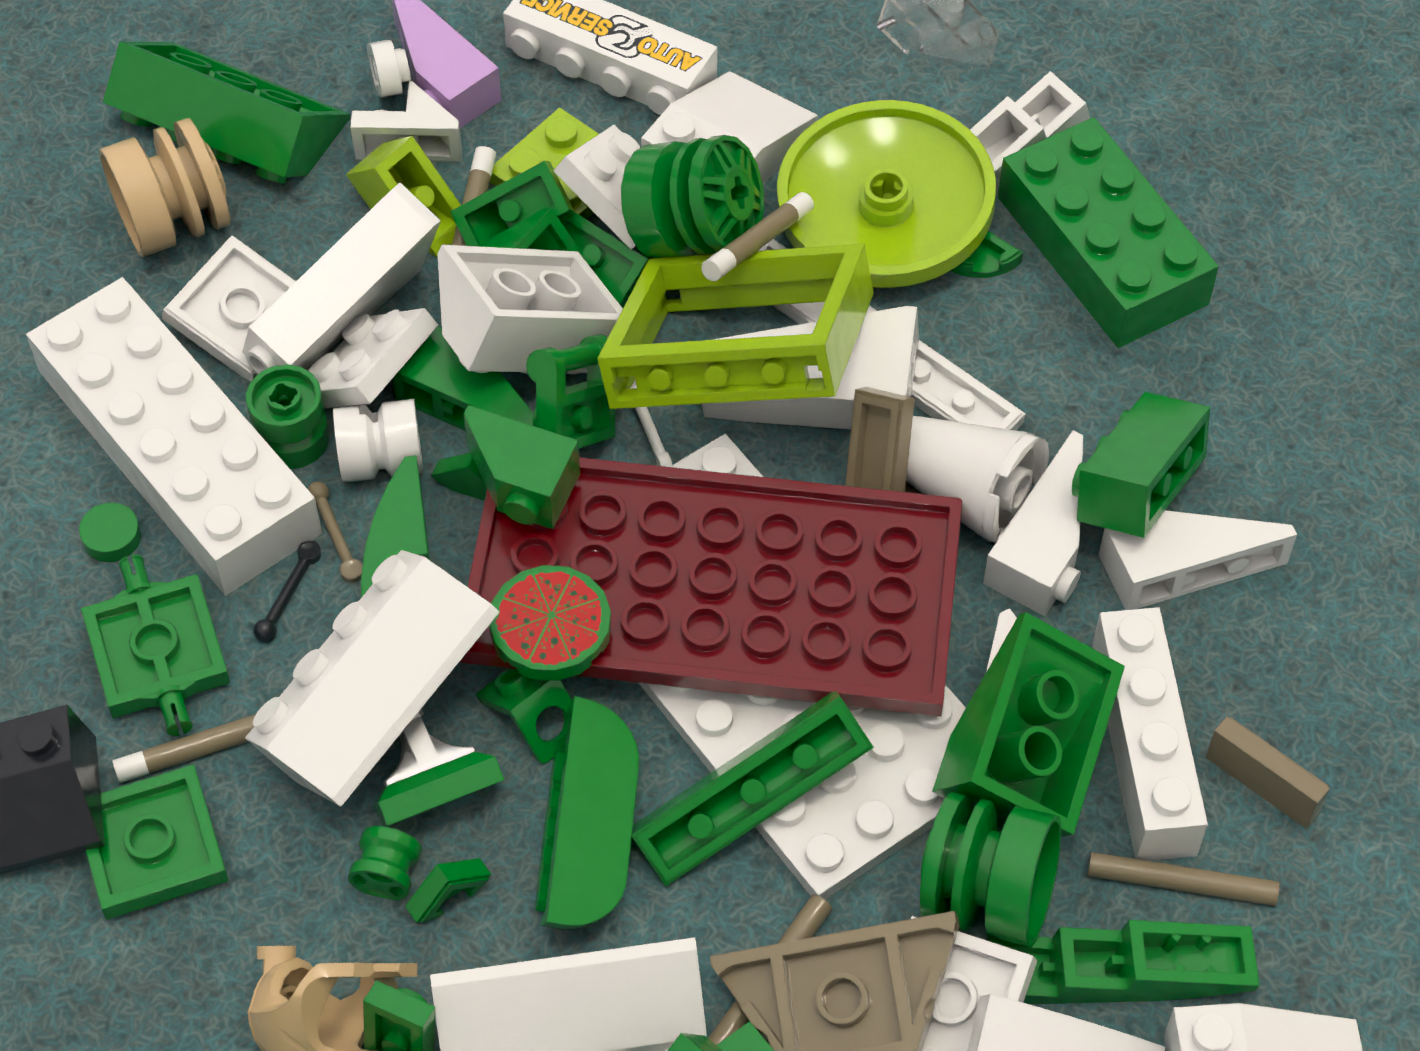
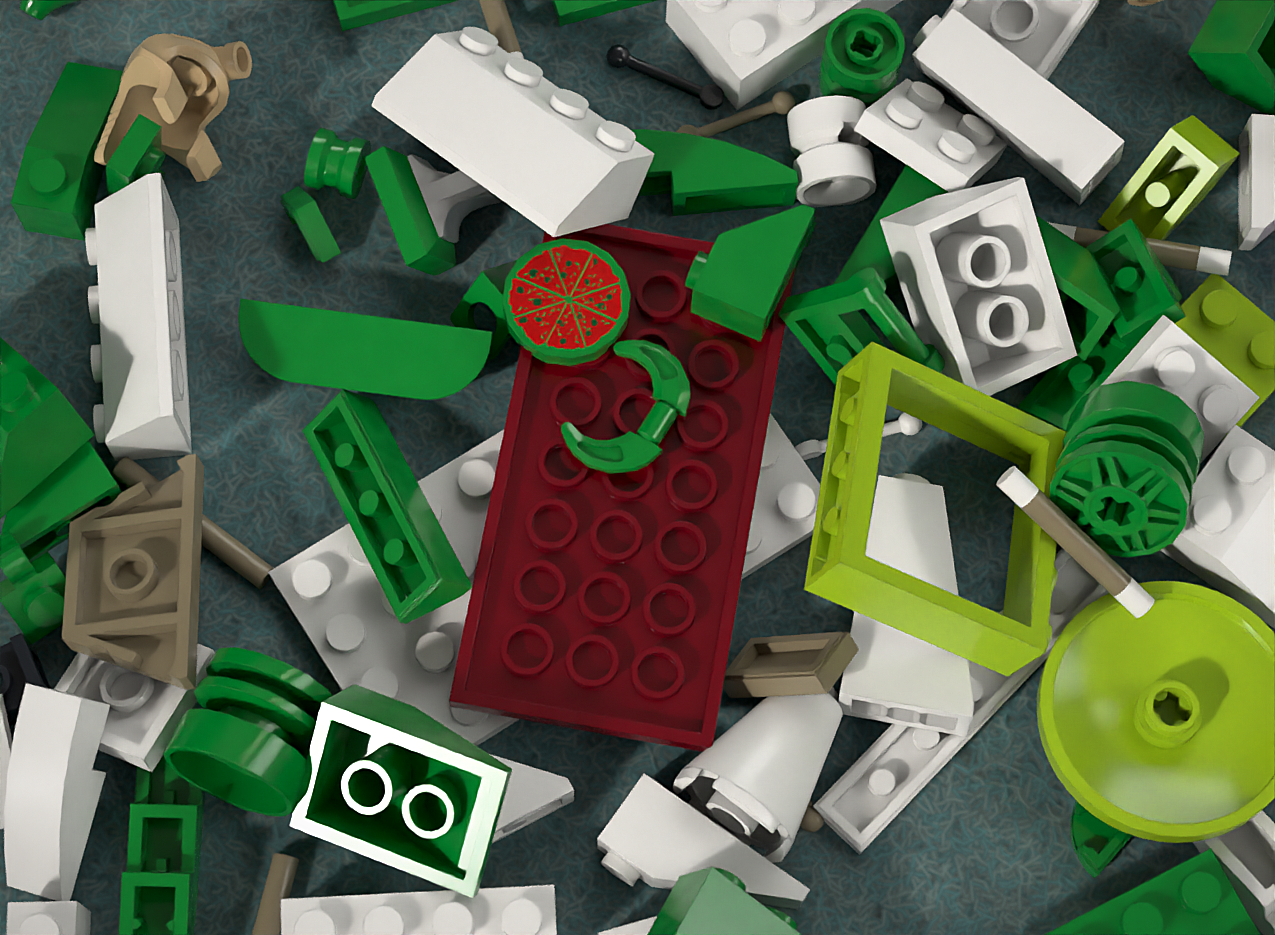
camera: 90 degrees right, 15 degrees up
(692, 559) = (638, 450): none -> green piece

